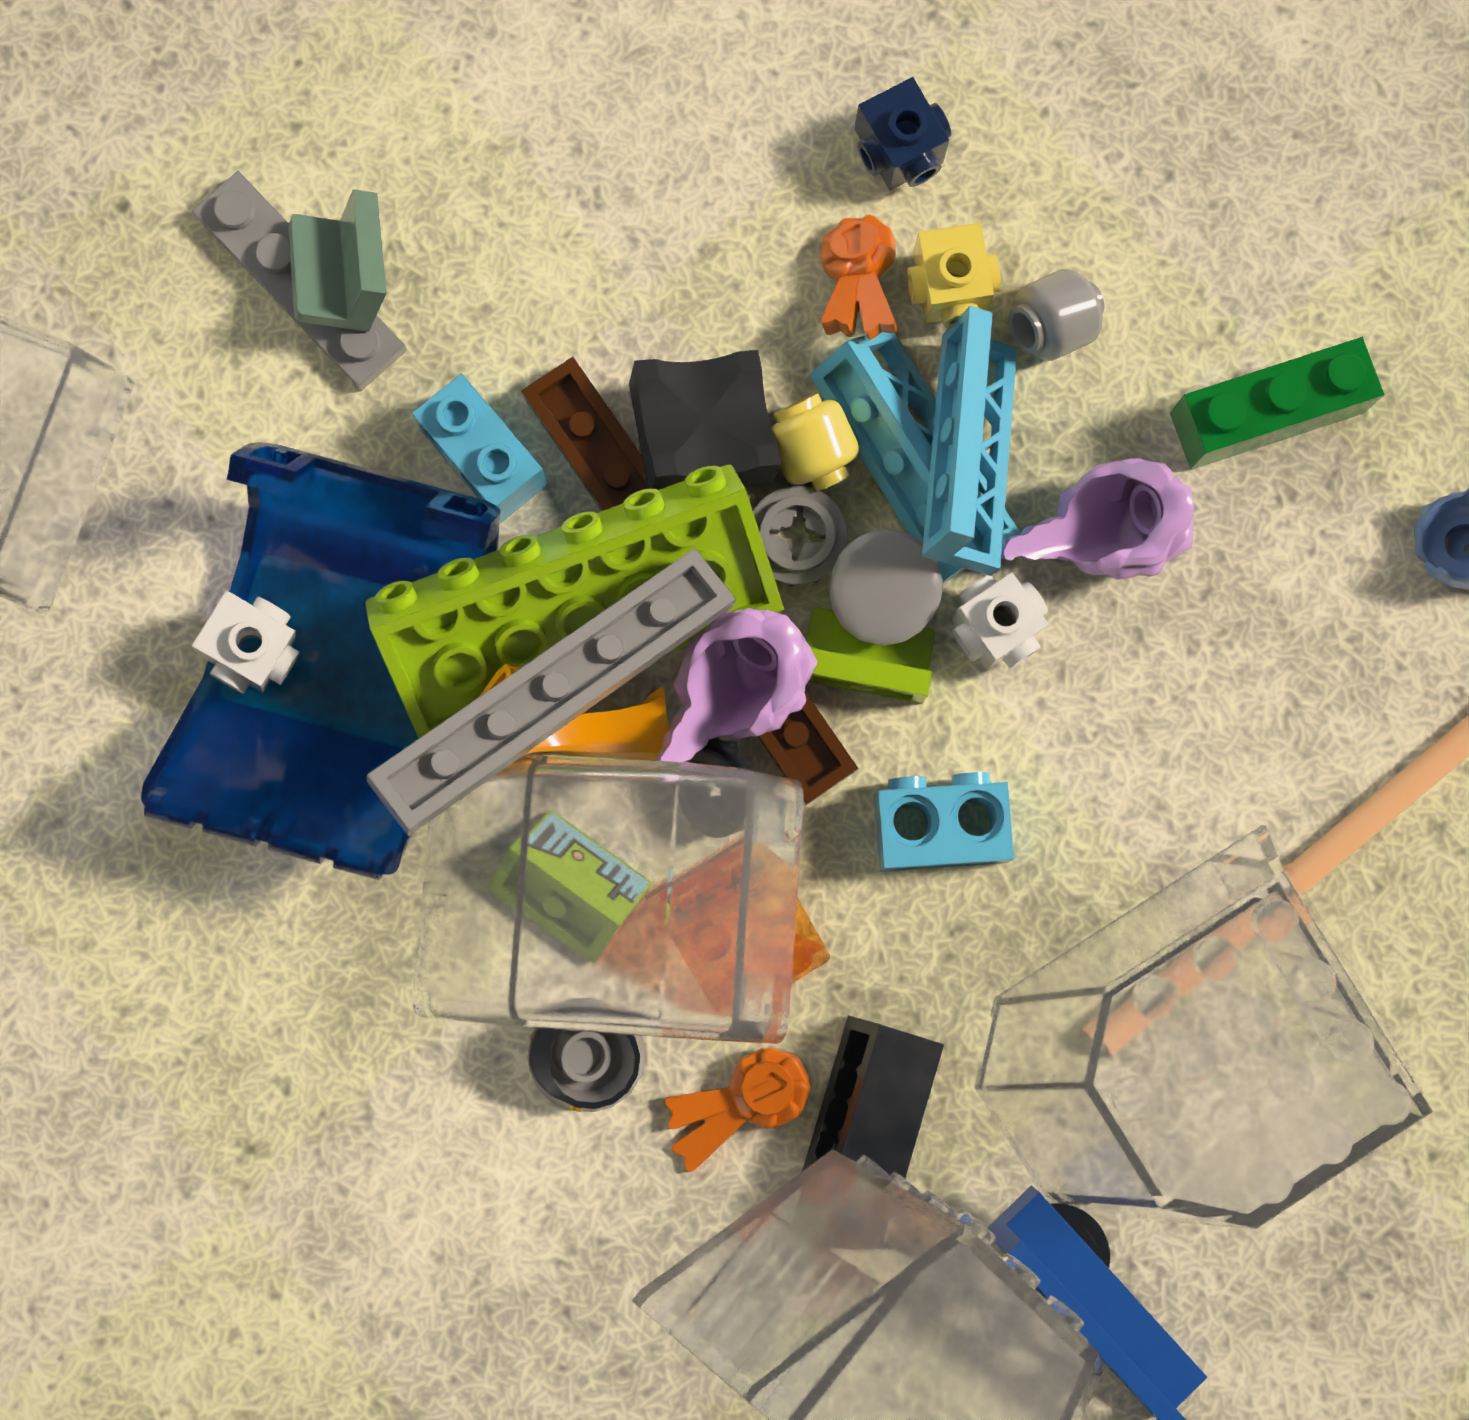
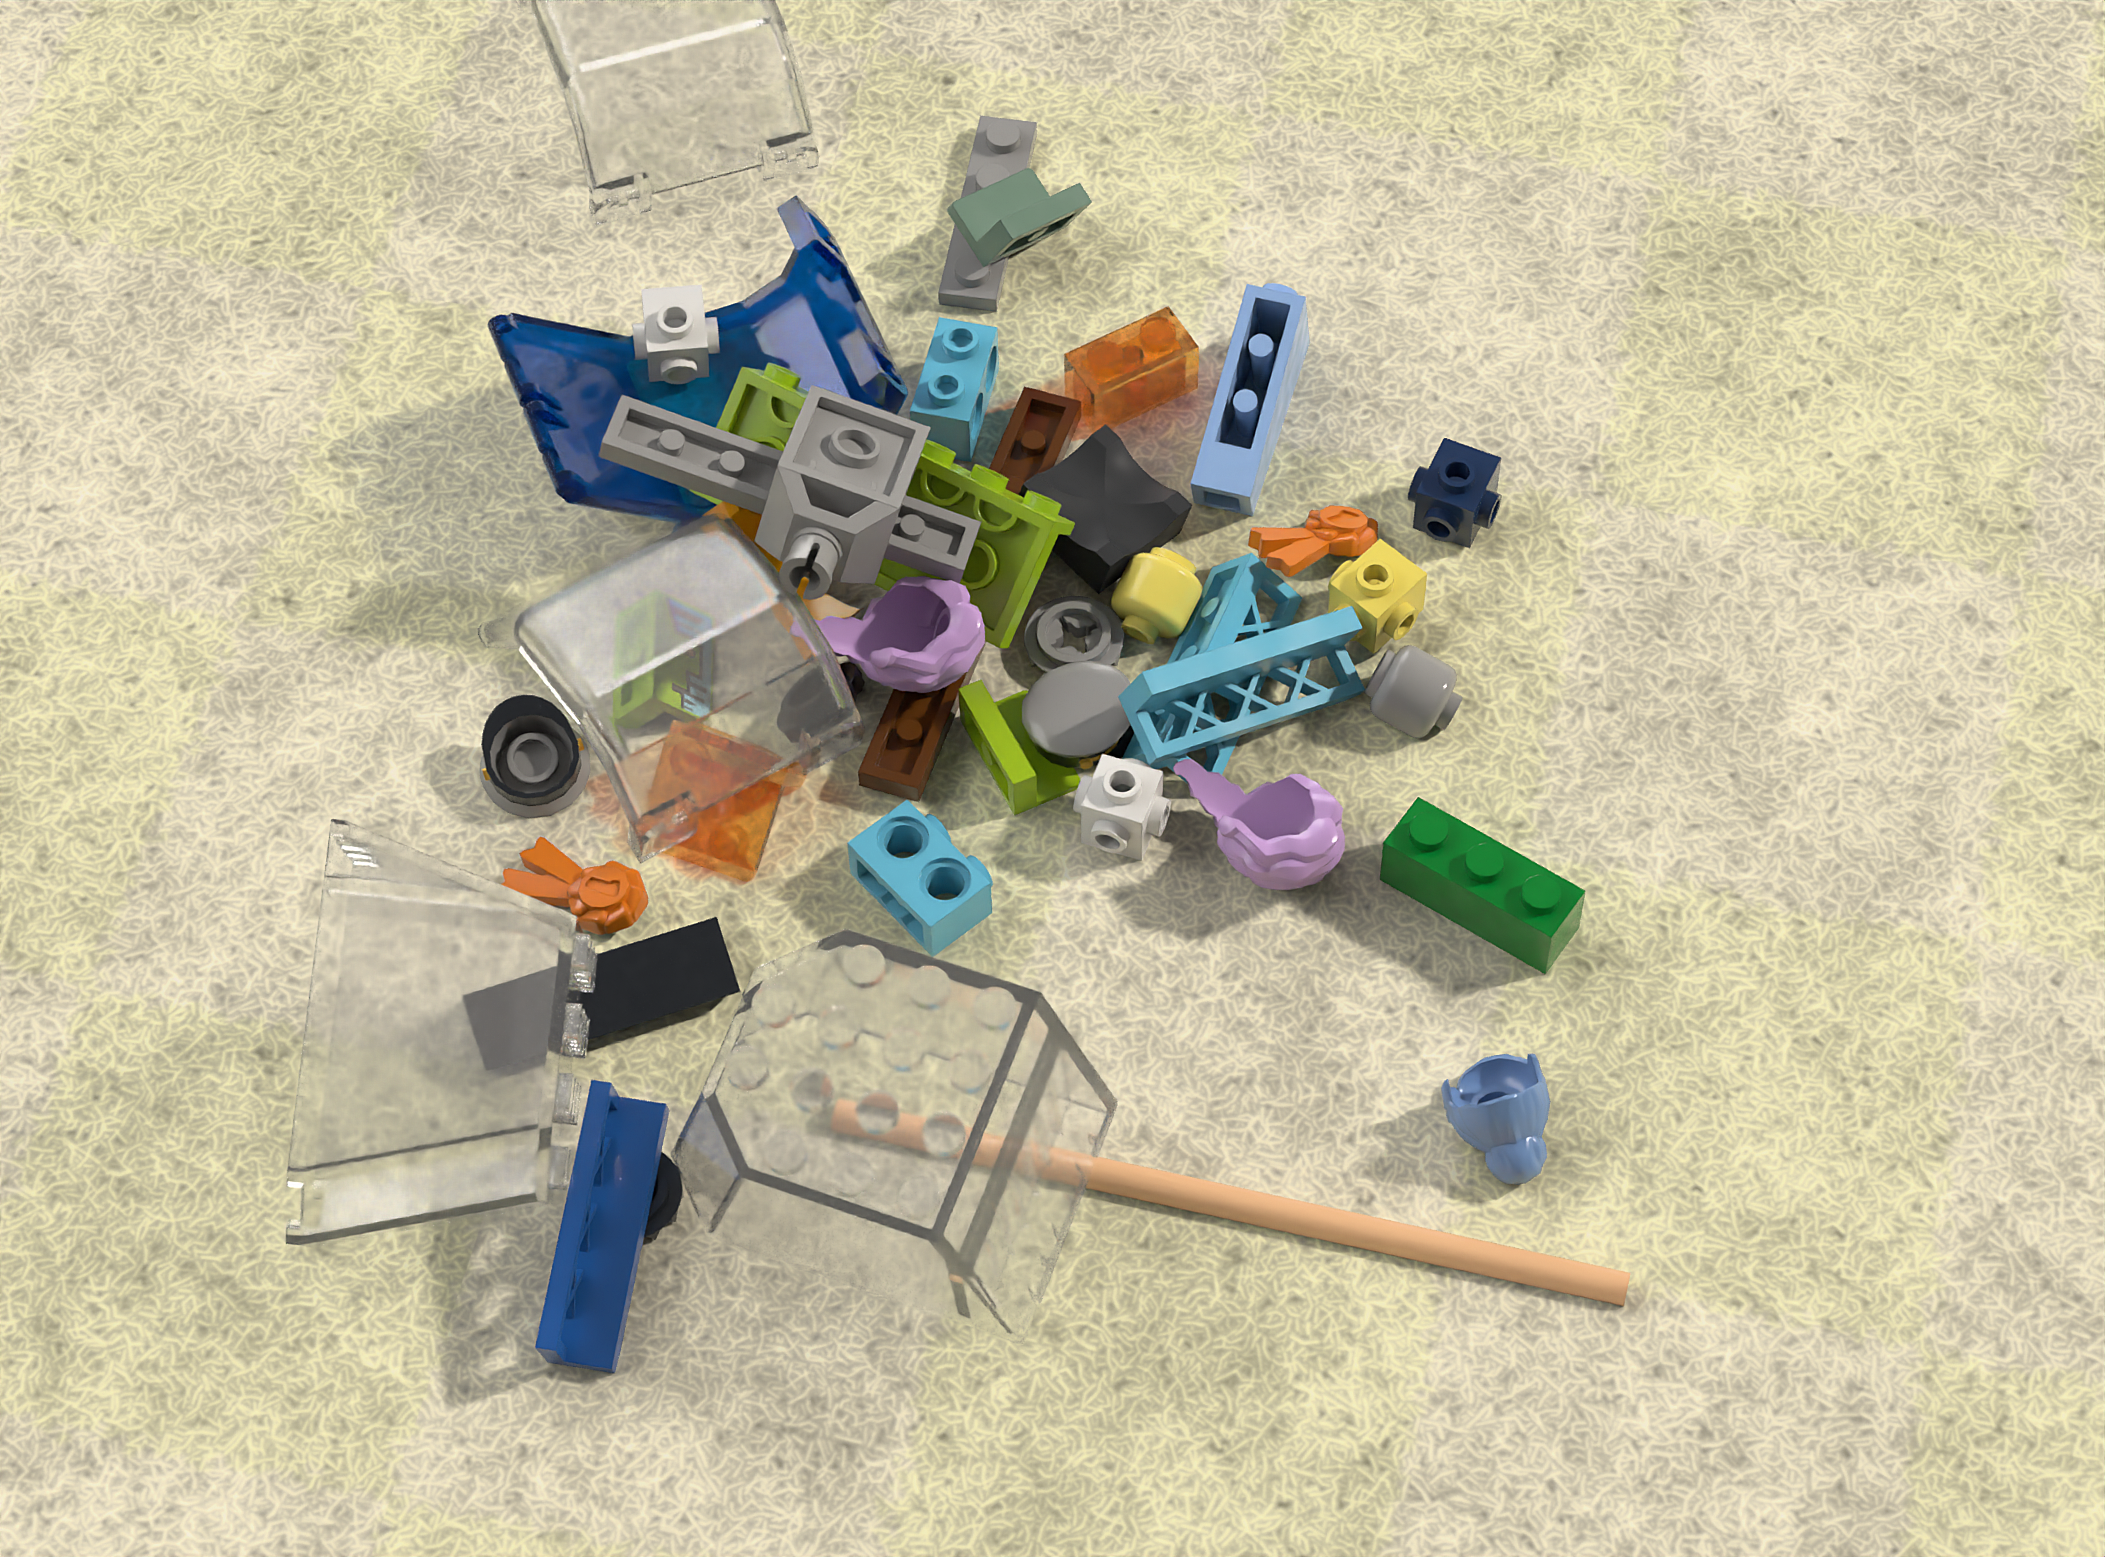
camera: 60 degrees right, 25 degrees down
(575, 292) = (1132, 370): none -> clear orange brick
(597, 650) = (838, 491): none -> light grey plate
(687, 220) = (1252, 398): none -> light blue slope

